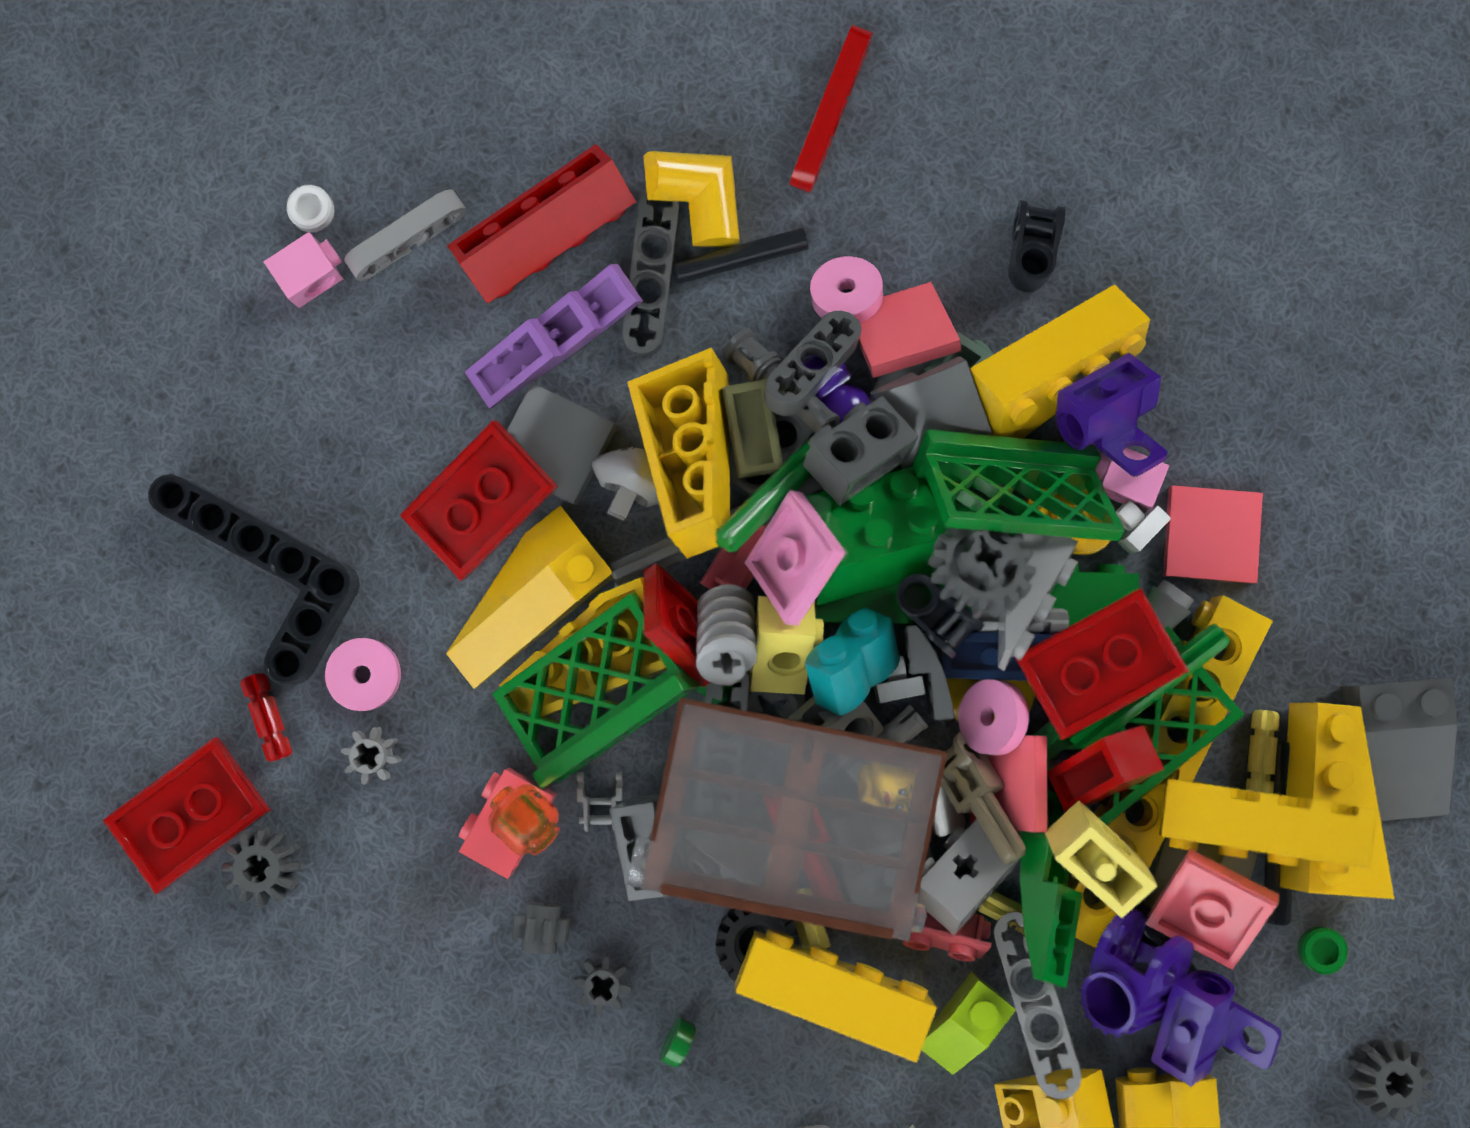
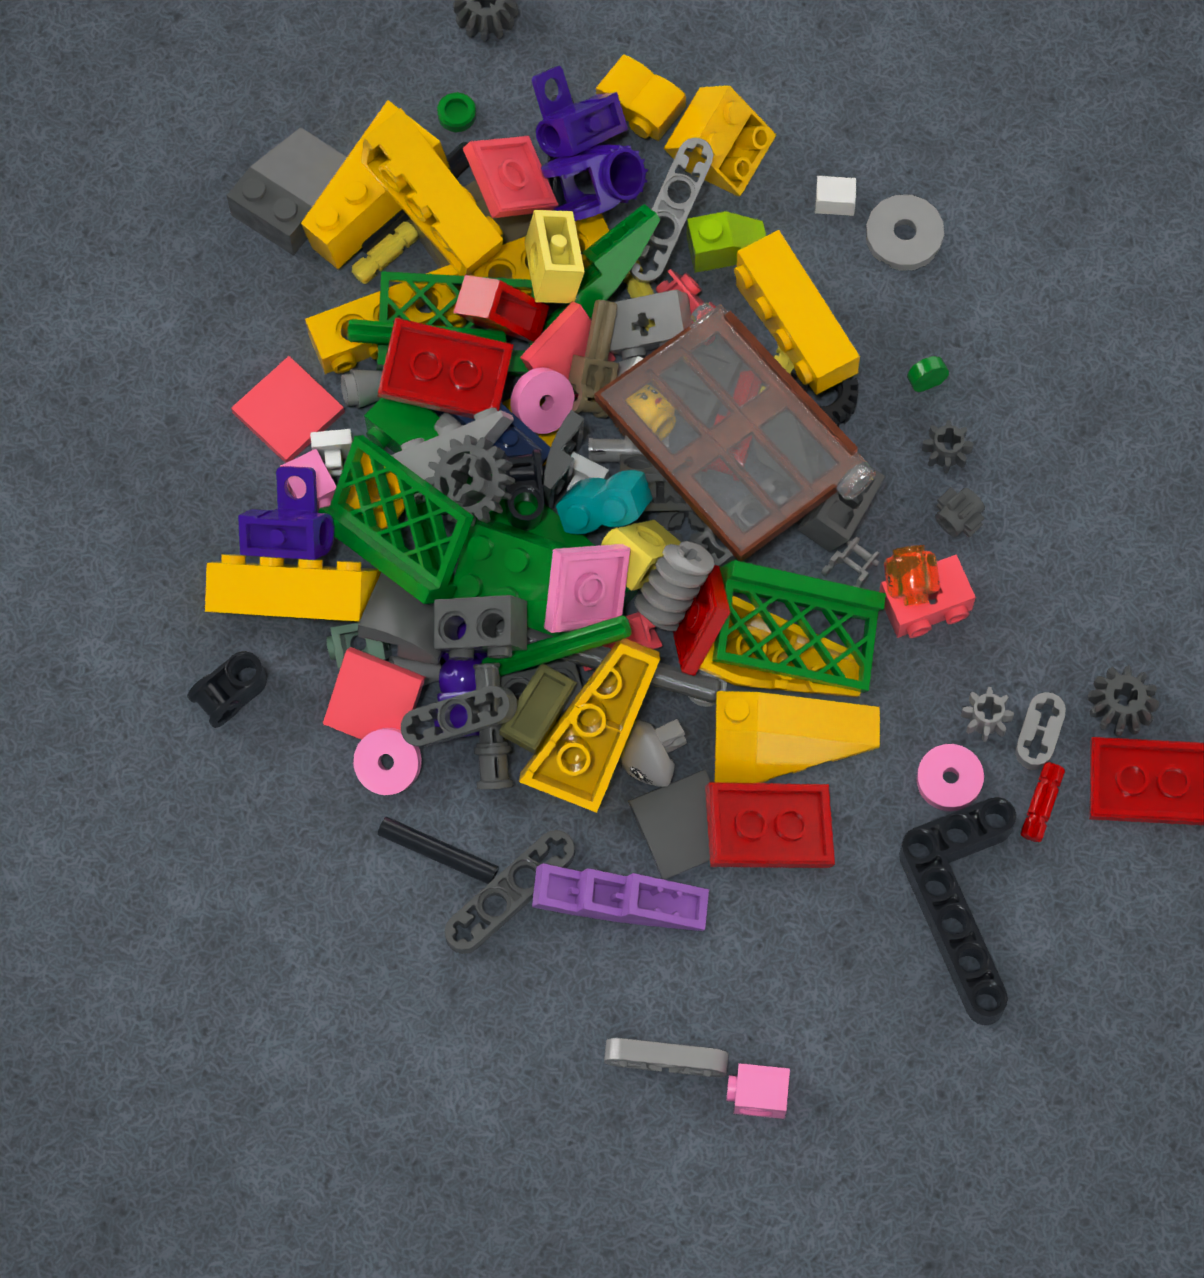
camera: 140 degrees left, 15 degrees down
(306, 784) = (1031, 728): none -> light grey beam
(310, 208) = (719, 1141): white tile -> none
(542, 223) = (561, 978): red brick -> none
(702, 182) = (421, 912): yellow brick -> none
(831, 108) = (283, 897): red beam -> none

